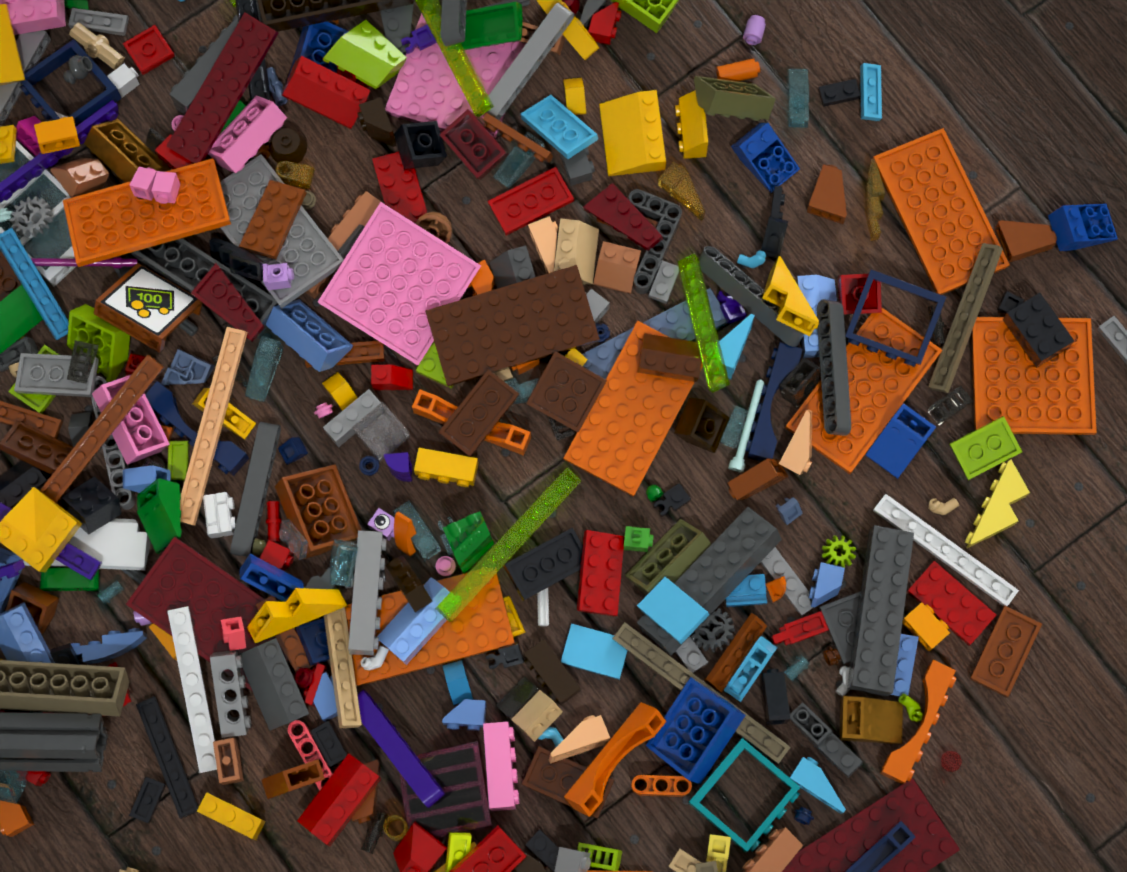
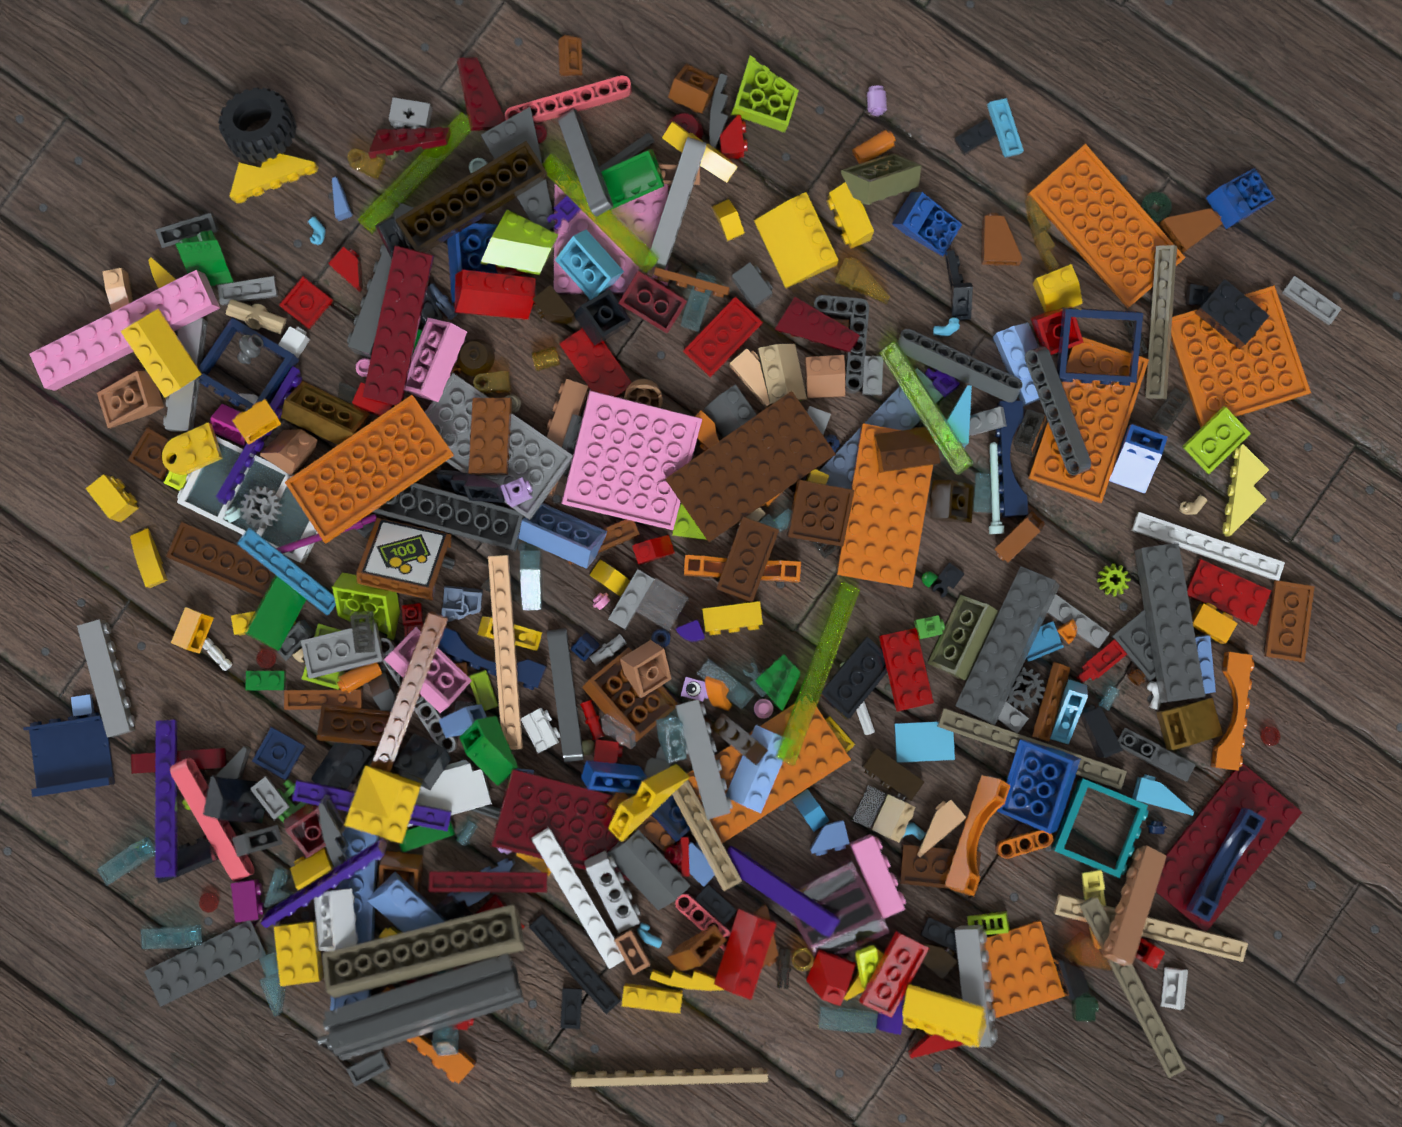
camera: 20 degrees left, 10 degrees up
(63, 406) = (358, 676): none -> orange brick
(111, 642) = (488, 881): none -> dark red plate
(143, 182) = (358, 441): bright pink brick -> none
(165, 187) = (380, 440): bright pink brick -> none
(199, 28) = (348, 266): none -> red slope
(224, 300) = (473, 529): dark red wing -> none
(233, 633) = (598, 838): coral brick -> none
(249, 755) = (647, 937): none -> medium azure arm
(282, 814) = (698, 980): none -> yellow slope
(313, 459) = (607, 650): none -> light grey pin
(343, 487) = (646, 668): none -> nougat slope
(353, 167) = (545, 358): none -> clear yellow piece
(375, 661) = (732, 818): white arm -> none
(425, 92) = (589, 264): none -> medium azure slope
(508, 655) = (849, 771): black plate -> none
(559, 126) = (726, 257): medium azure plate -> none
(673, 610) = (987, 686): medium azure tile -> none
(760, 357) = (987, 421): none -> light grey plate
(789, 510) = (1057, 556): sand blue tile -> none
(793, 307) = (991, 354): yellow slope -> none
(798, 98) = (939, 155): clear light blue slope -> none
(800, 447) = (1049, 500): light nougat slope -> none
(827, 583) = (1113, 611): medium blue slope -> none
(874, 254) = (1058, 289): none -> yellow slope
(912, 707) = (1222, 699): lime arm -> none
(1003, 205) = (1160, 200): none -> clear green gear

